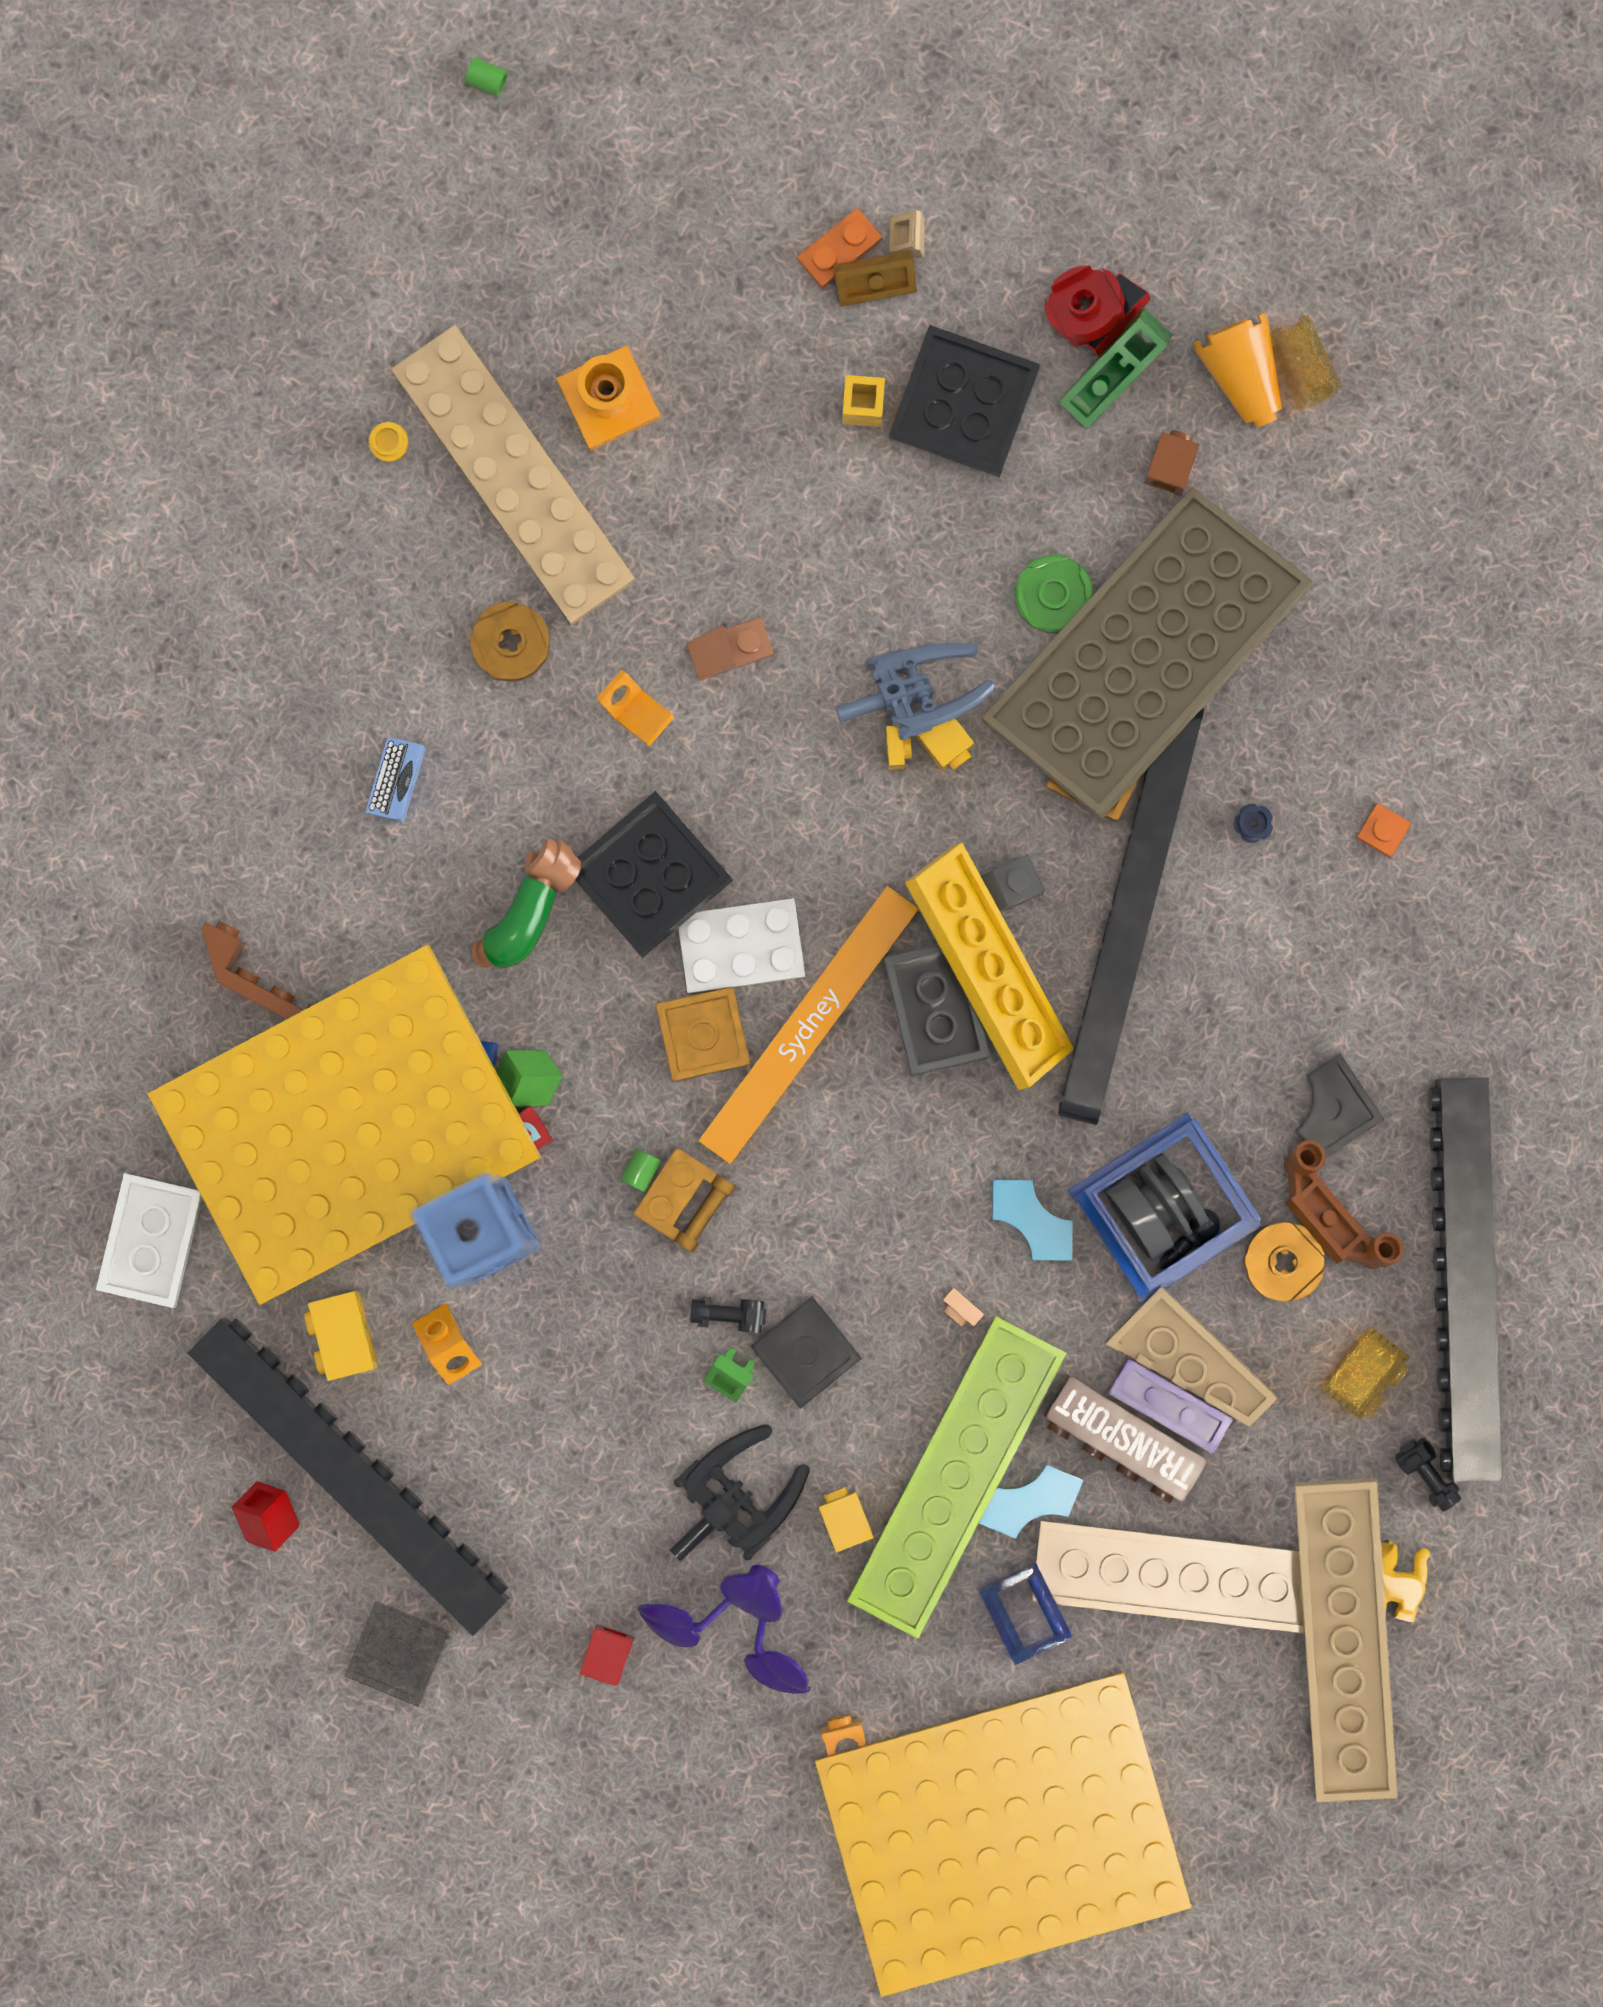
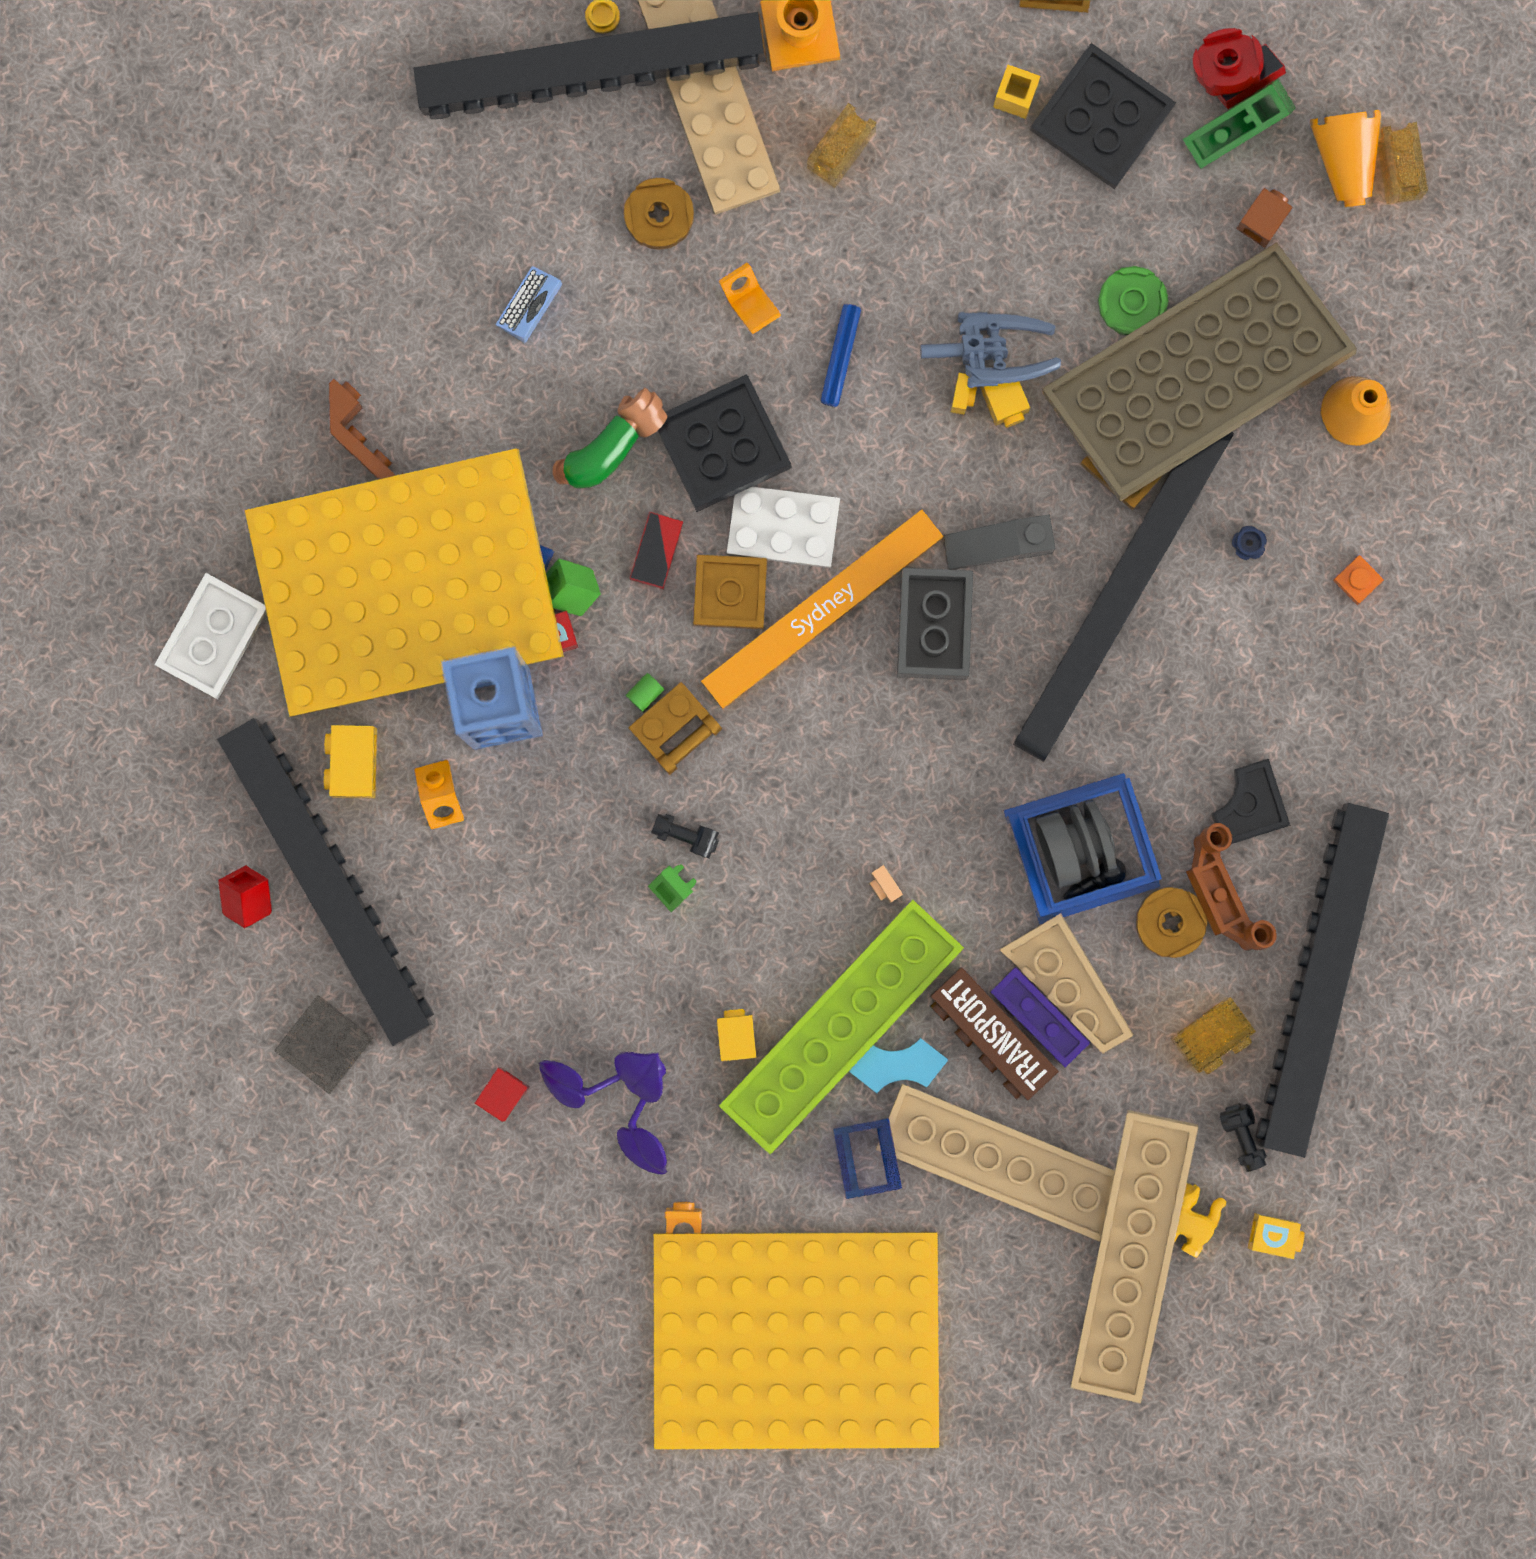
camera: 10 degrees right, 0 degrees up
(390, 501) = (590, 64): none -> black brick
(610, 1011) = (656, 550): none -> black tile
(688, 512) = (841, 145): none -> clear yellow brick
(721, 1511) = (633, 999): black bar -> none
(730, 648) = (844, 271): nougat slope -> none
(751, 741) = (840, 355): none -> blue axle
(806, 1352) = (742, 886): black tile -> none
(989, 966) = (990, 599): yellow plate -> none
(1017, 1205) = (974, 842): medium azure tile -> none
(1329, 646) = (1356, 410): none -> light orange cone
(1493, 1574) = (1275, 1236): none -> yellow brick

